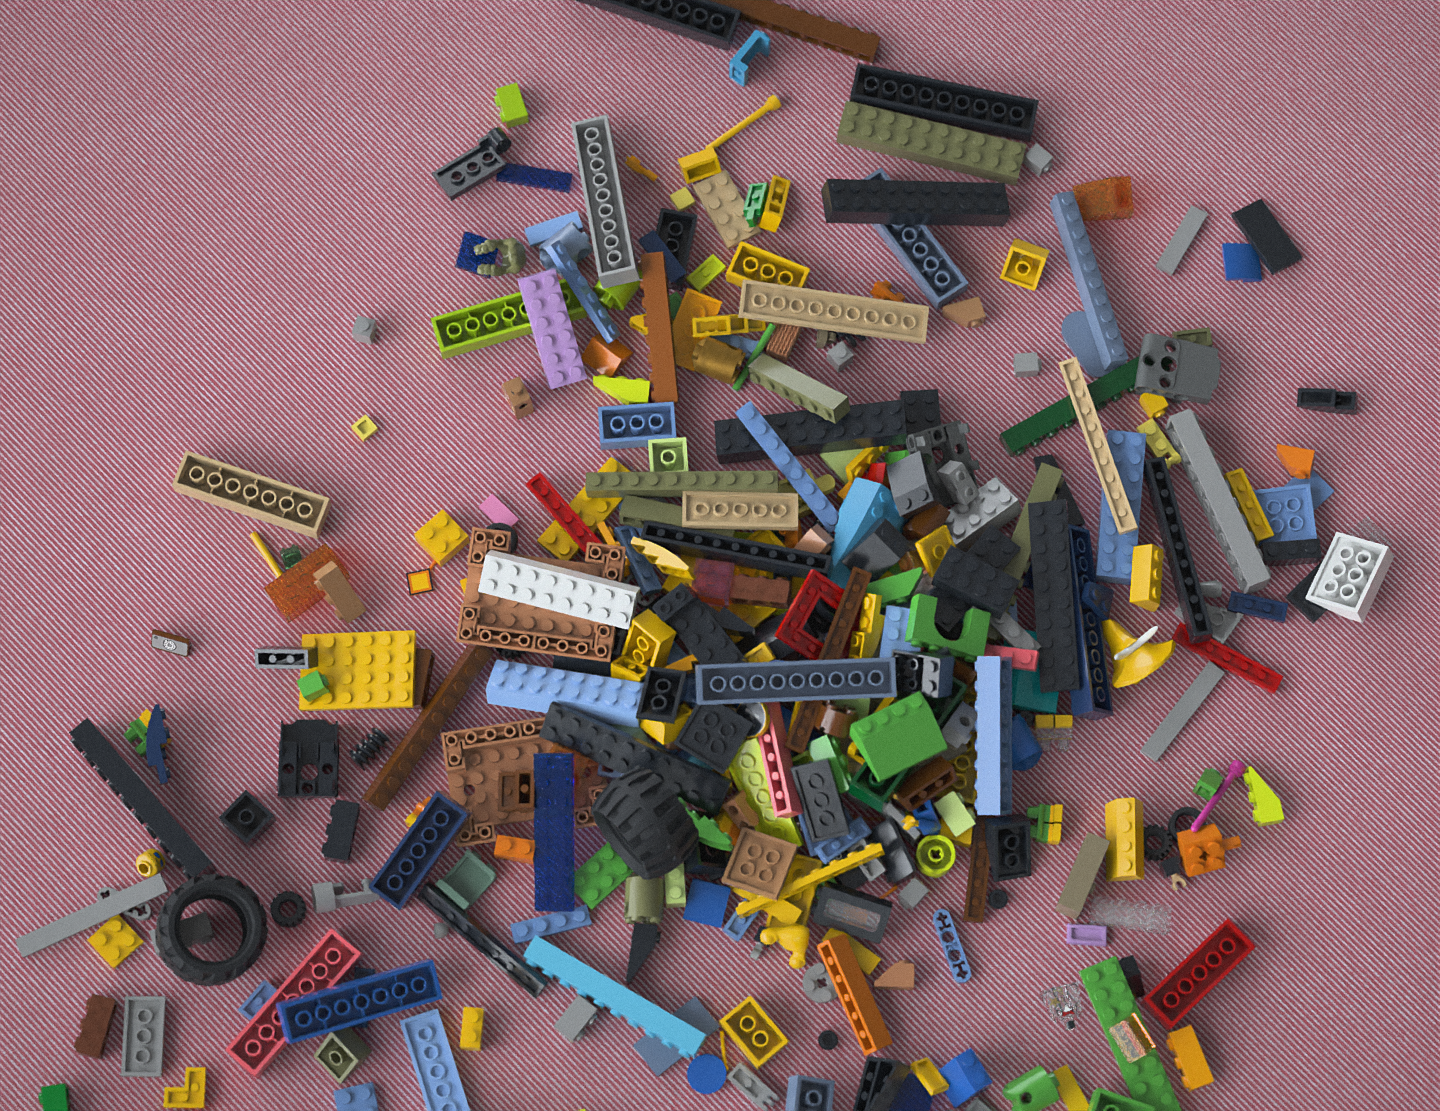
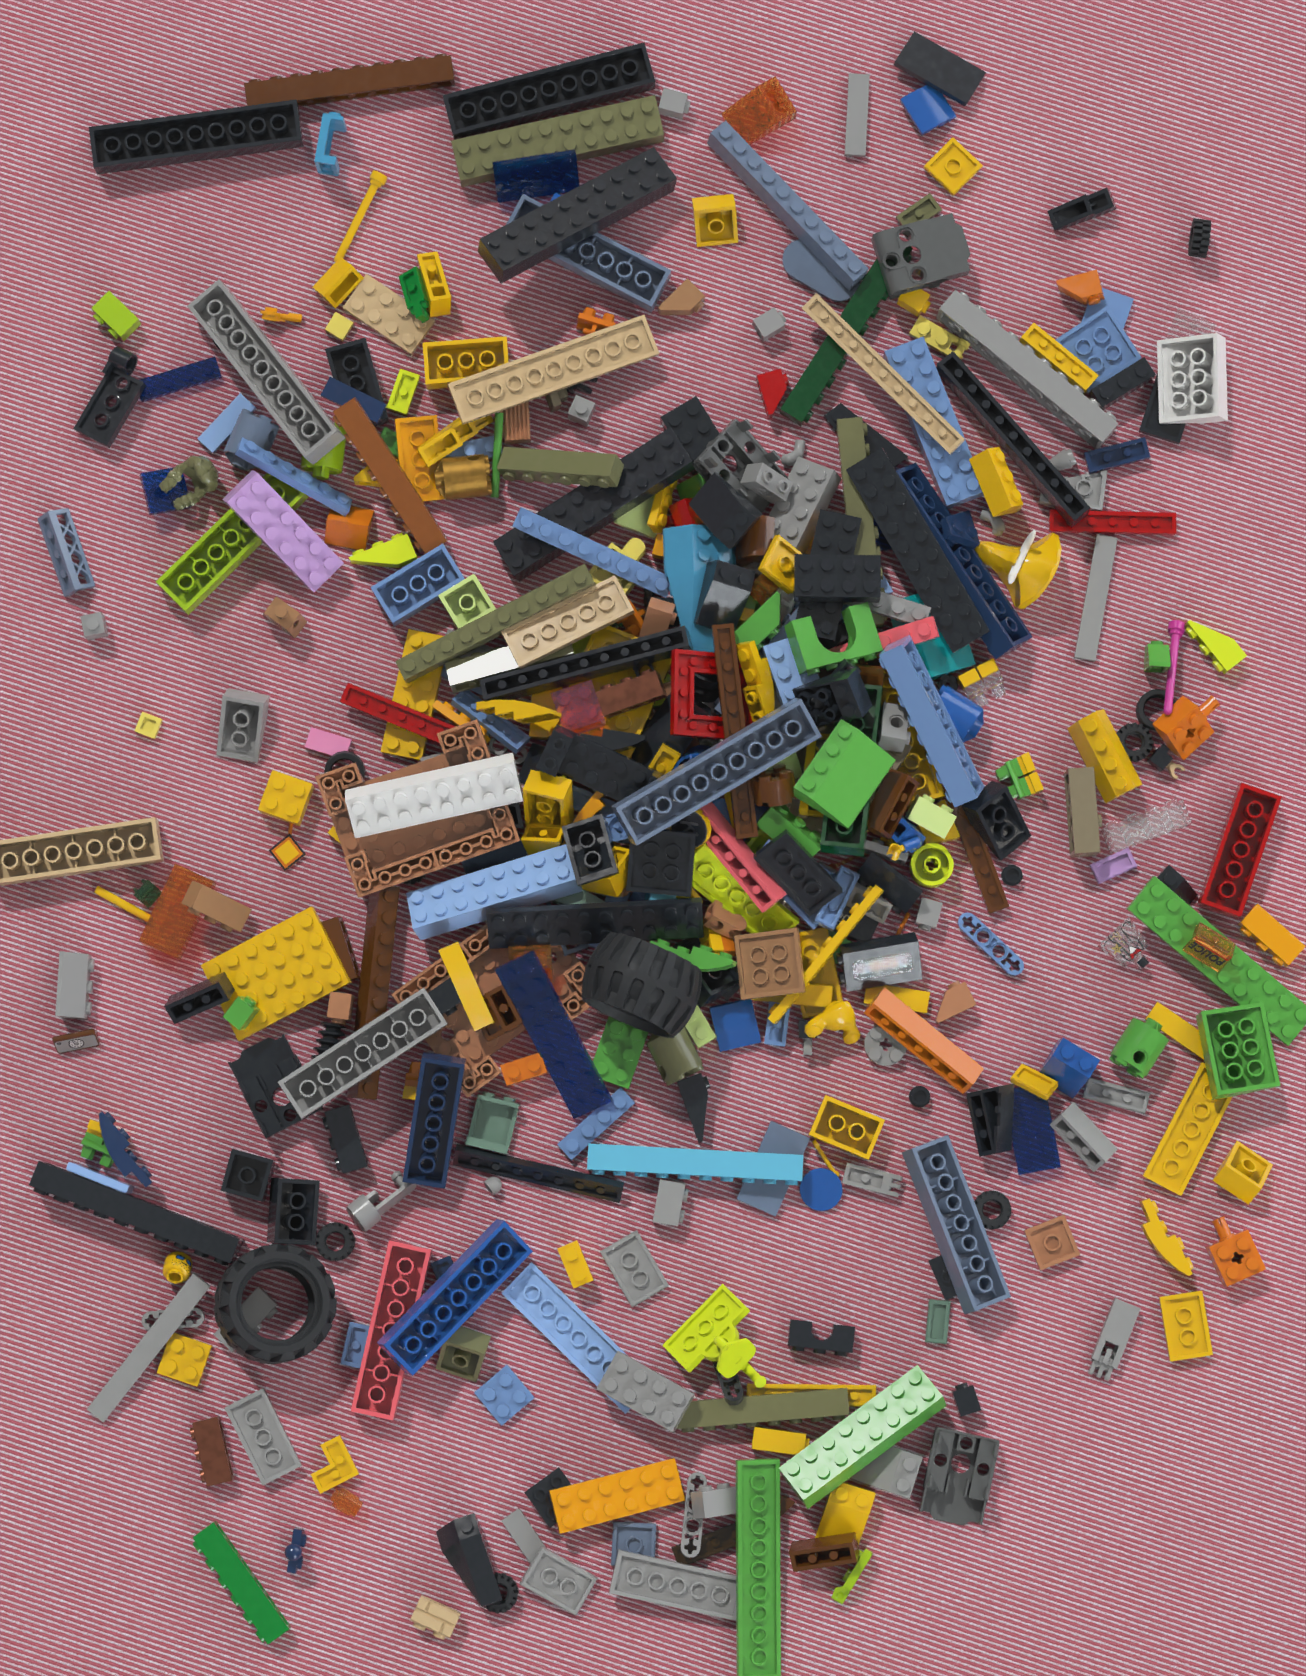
camera: 25 degrees left, 10 degrees up
(128, 758) = (100, 1178): none -> light blue tile
(192, 597) = (74, 985): none -> light grey slope
(268, 865) = (293, 1211): none -> black slope
(369, 257) = (61, 551): none -> sand blue fence
(391, 764) = (362, 1053): none -> light grey brick
(394, 723) = (340, 1008): none -> nougat brick
(438, 464) = (242, 724): none -> light grey slope
(490, 757) = (445, 998): none -> black brick
(503, 754) = (466, 986): none -> yellow slope
(518, 1059) = (634, 1268): none -> light grey tile
(898, 159) = (536, 175): none -> clear blue plate
(999, 474) = (790, 458): none -> light grey arm
(1002, 416) = (772, 390): none -> red slope
(1131, 609) = (996, 522): none -> light grey arm
(1238, 316) = (952, 166): none -> yellow plate
(1412, 468) = (1199, 238): none -> black tyre

